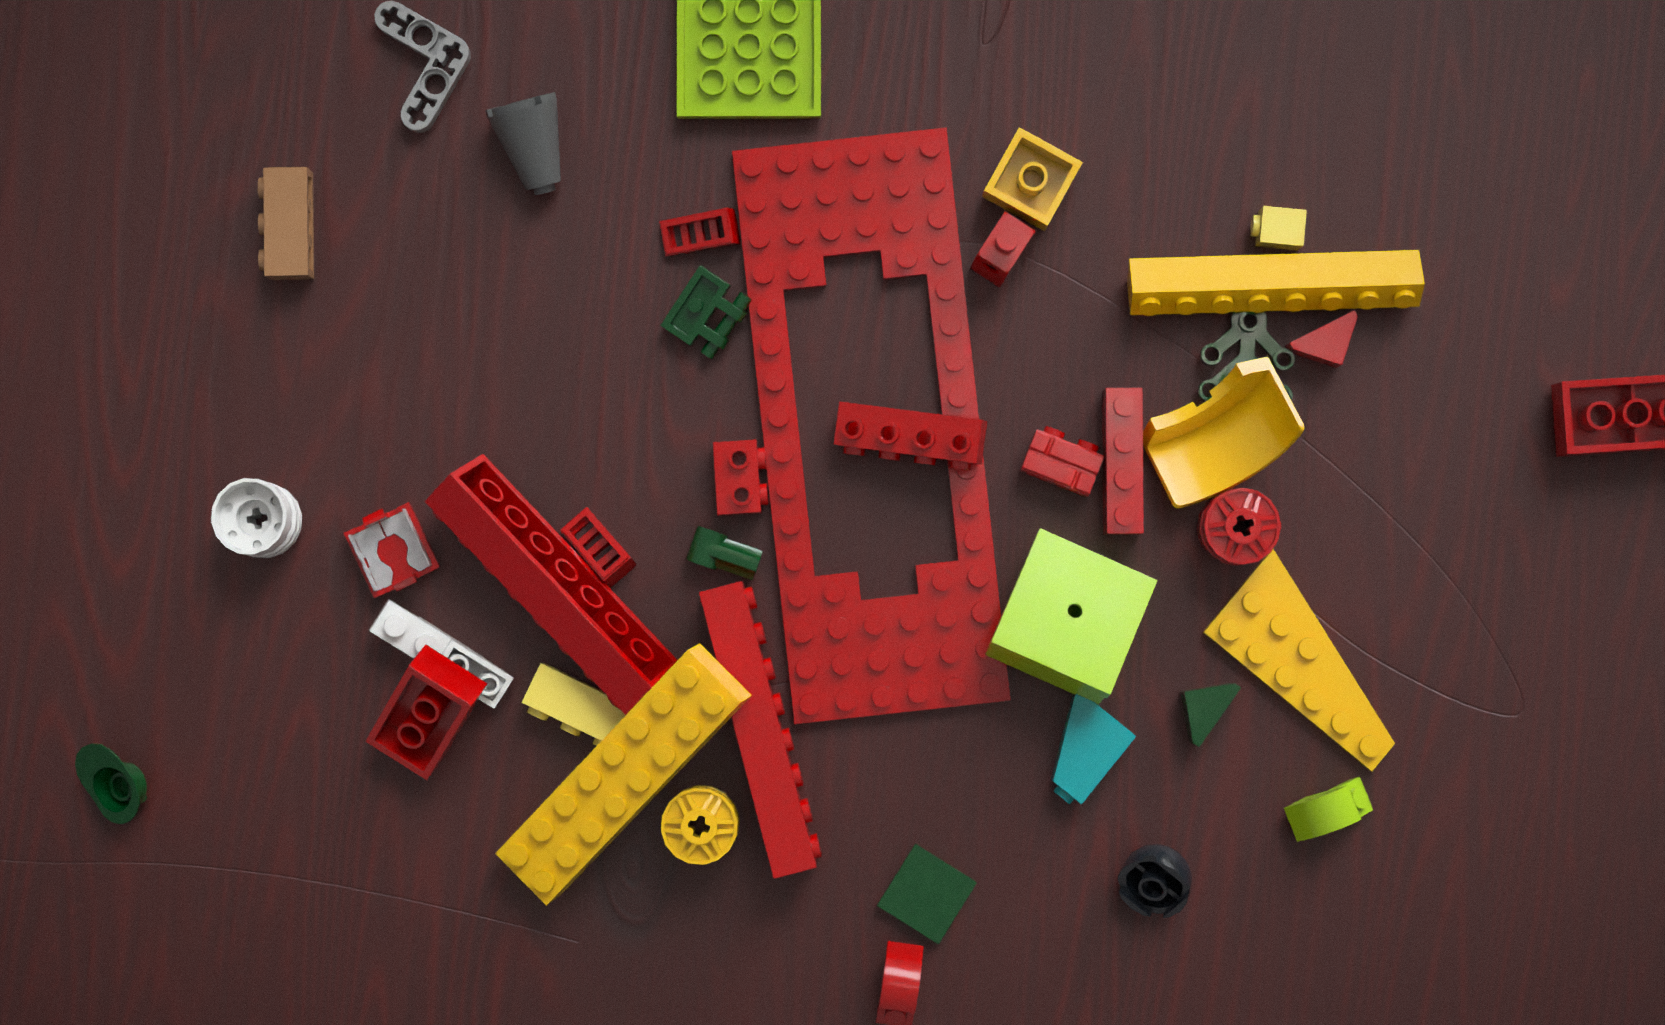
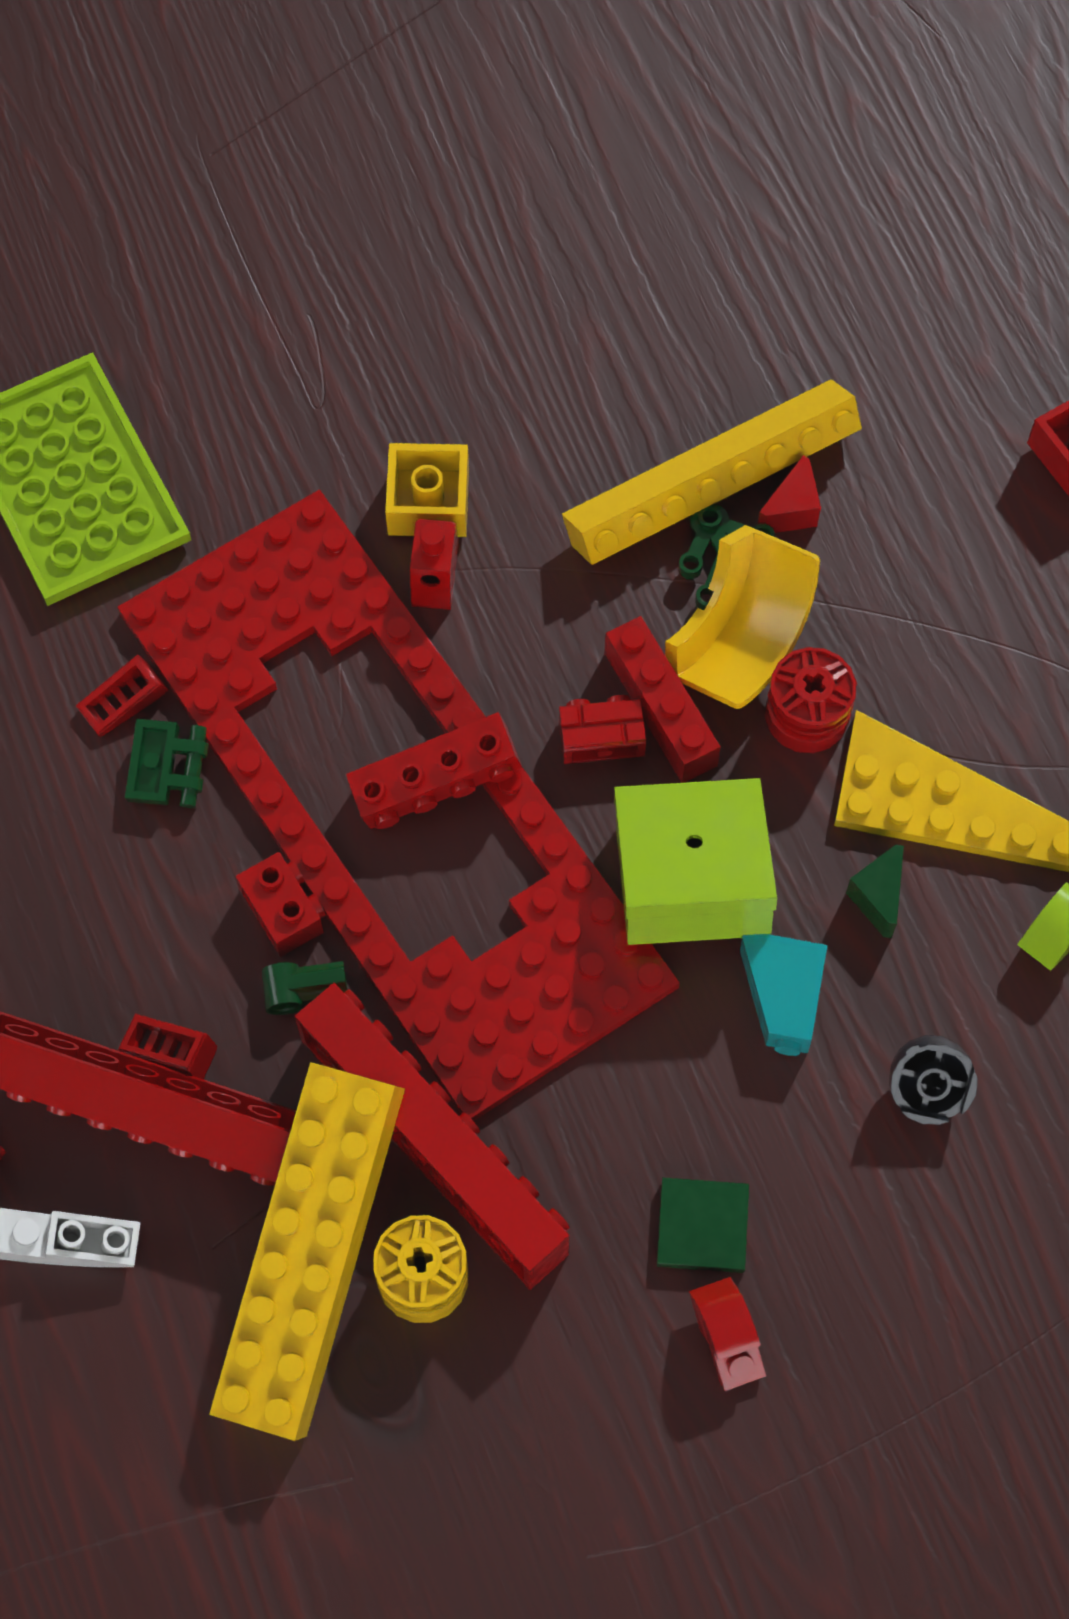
camera: 30 degrees left, 20 degrees down
(426, 712) = (58, 1298): red brick -> none
(571, 702) = (213, 1216): light yellow brick -> none
(1279, 228) = (688, 424): light yellow brick -> none

